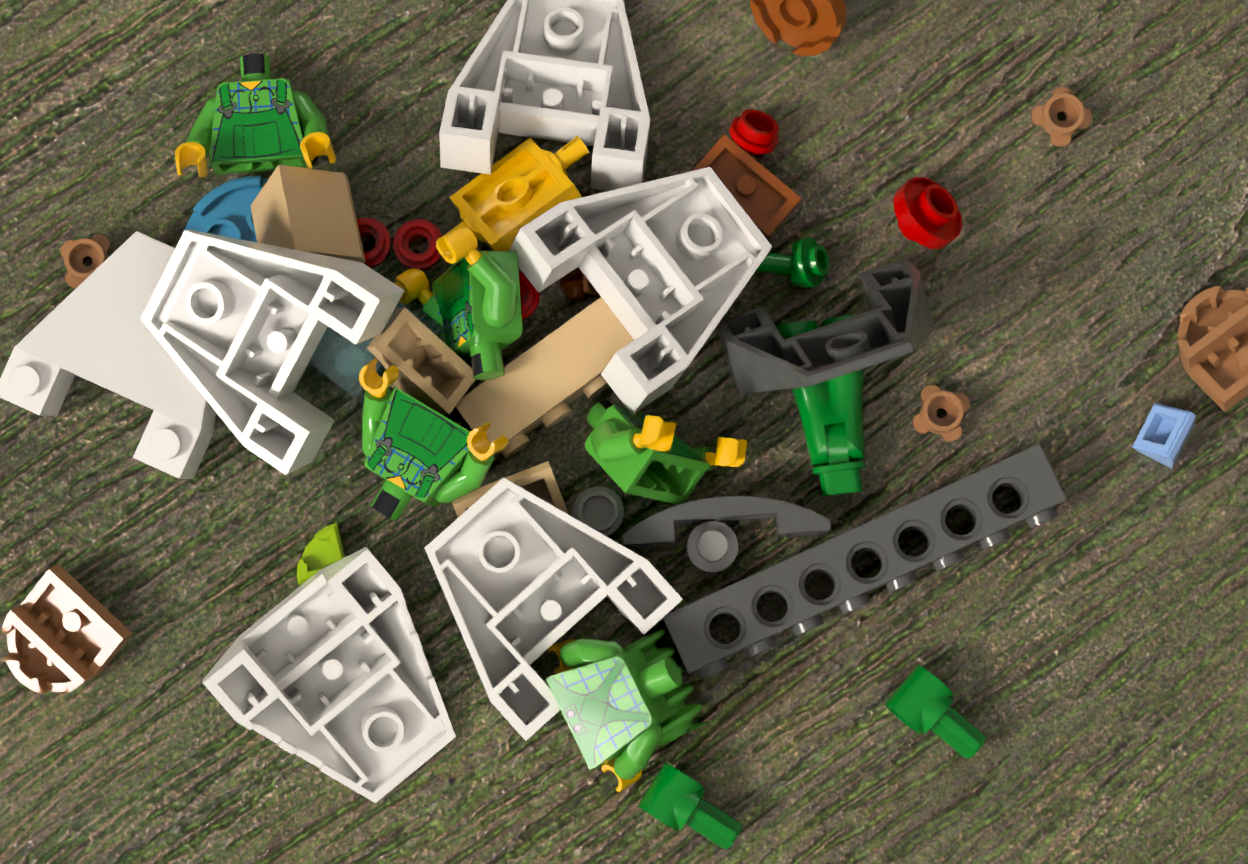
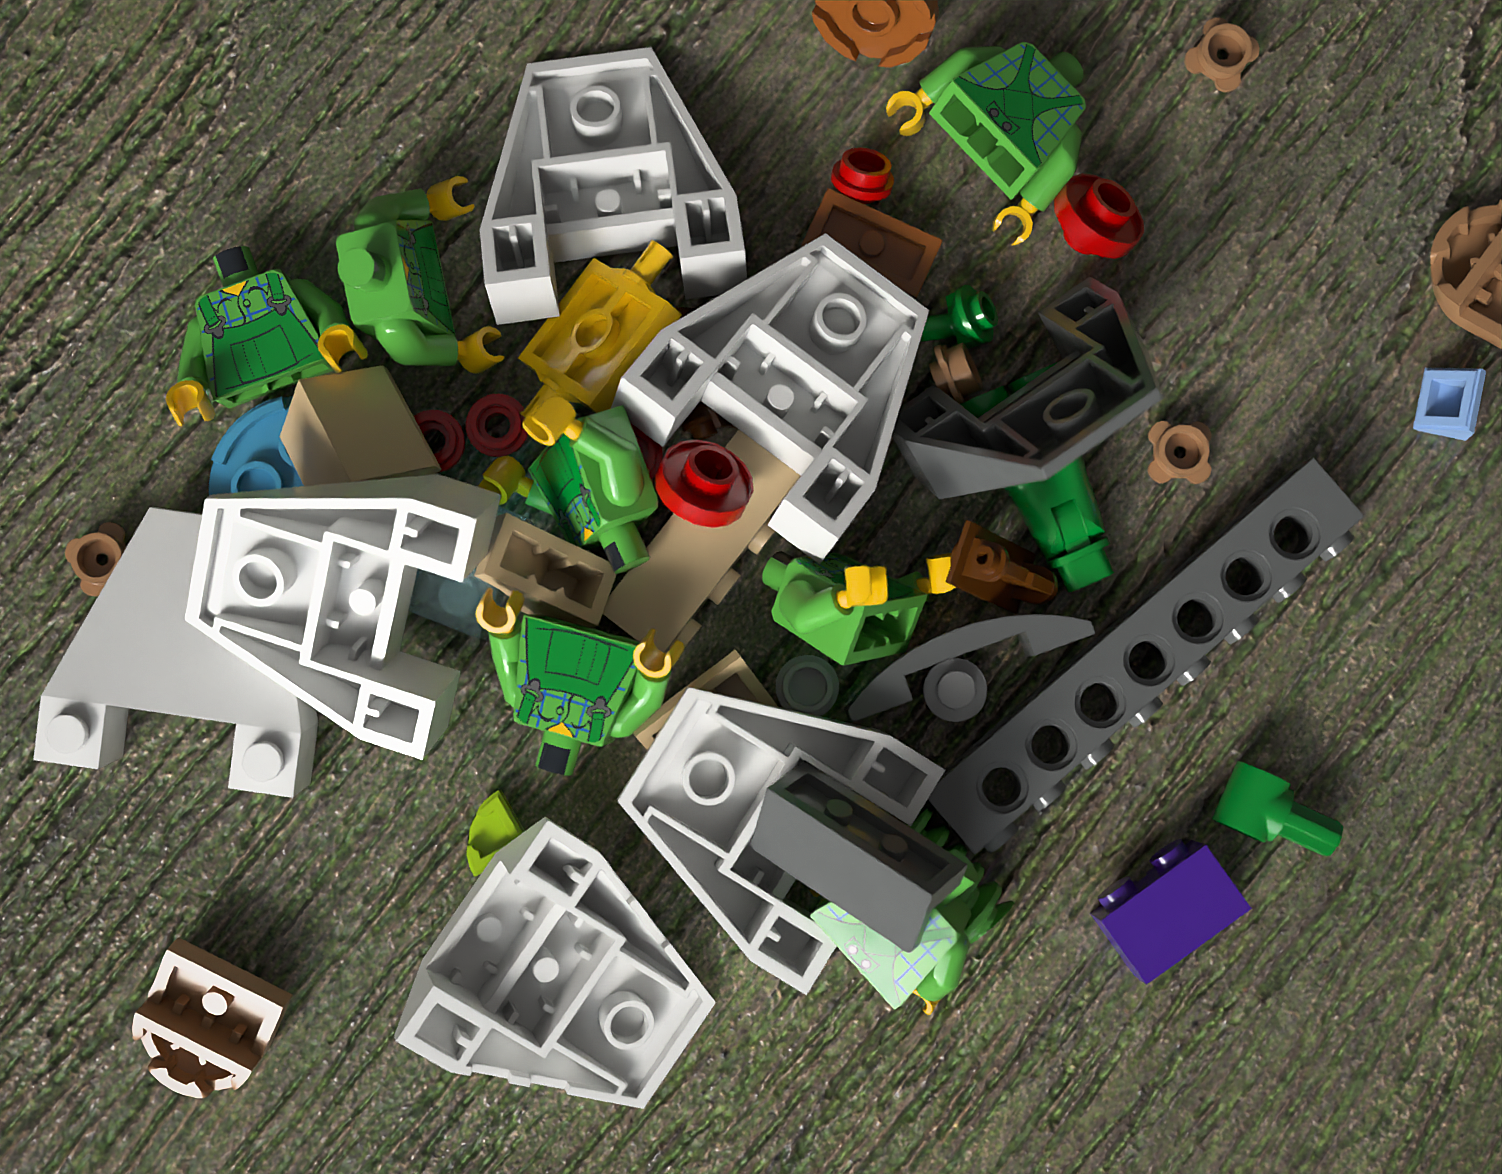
camera: 30 degrees left, 5 degrees up
(375, 115) = (399, 283): none -> bright green torso
(561, 328) = (704, 483): none -> red plate
(591, 637) = (855, 854): none -> panel
(679, 802) = (1002, 1005): green axle -> none
(770, 461) = (998, 570): none -> reddish brown hinge
(782, 301) = (955, 372): none -> medium nougat plate
(829, 764) = (1169, 909): none -> dark purple piece
(880, 119) = (1009, 116): none -> bright green torso

